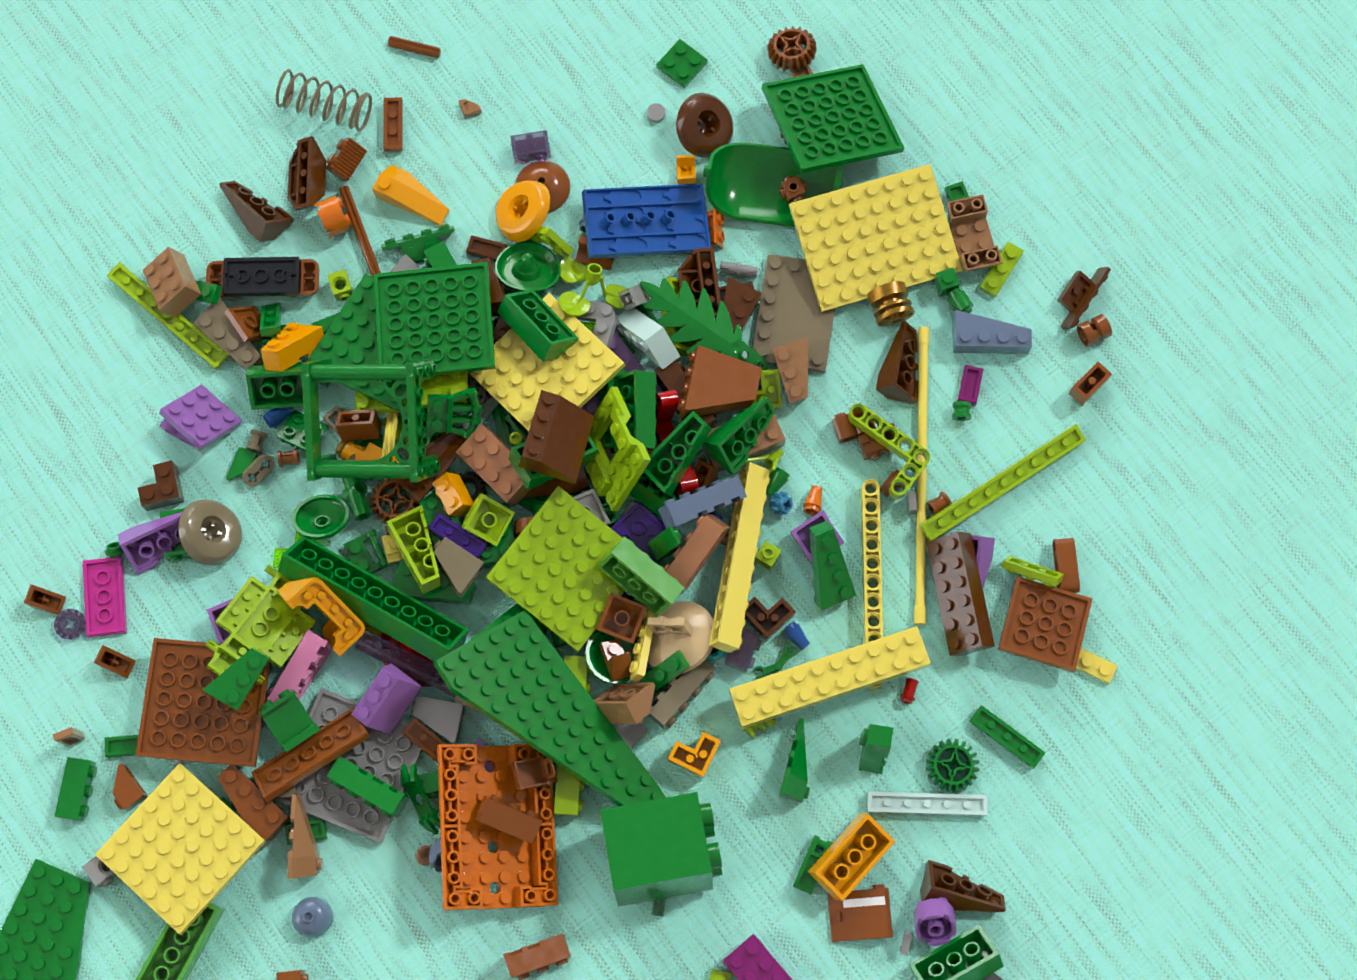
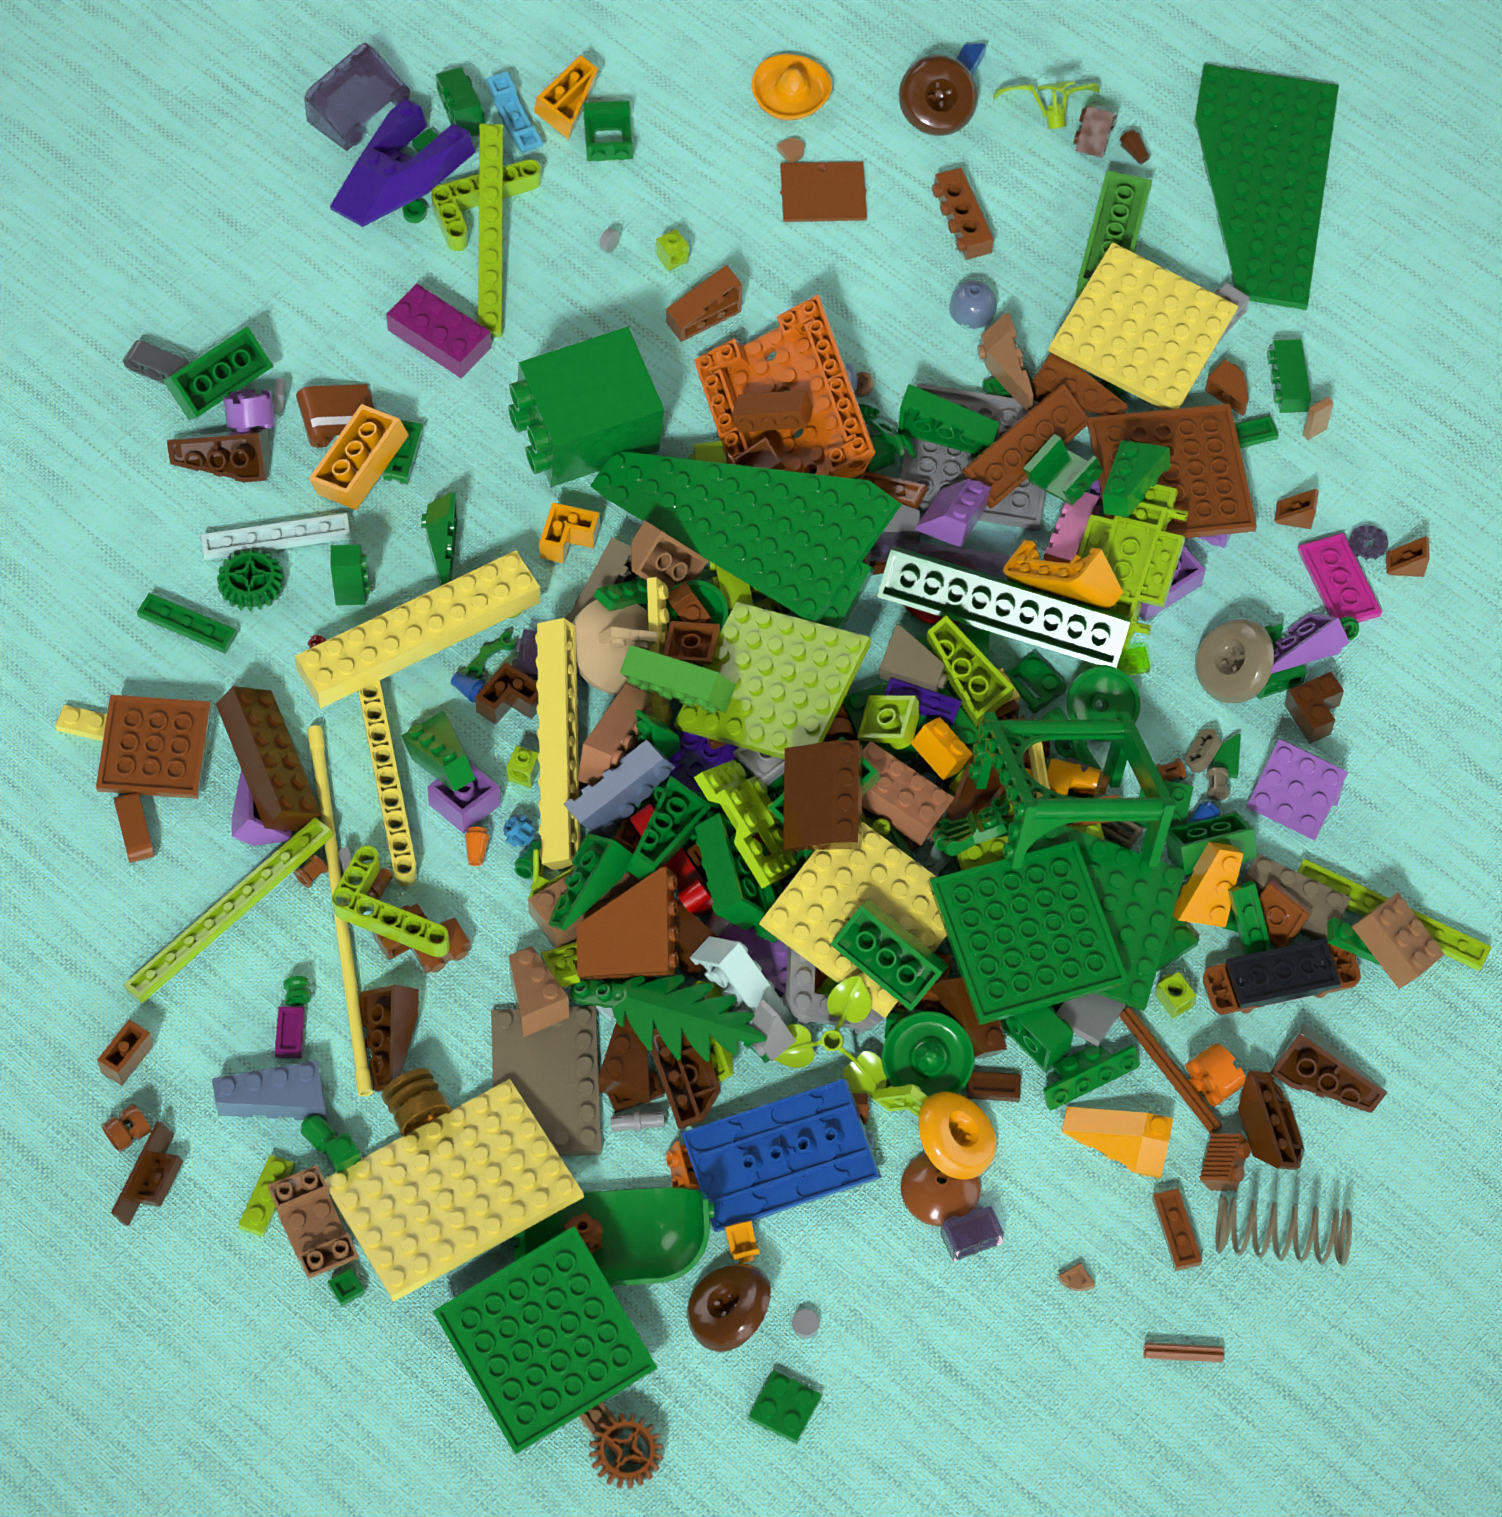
camera: 165 degrees right, 15 degrees down
(1032, 571) = (177, 804): lime plate -> none

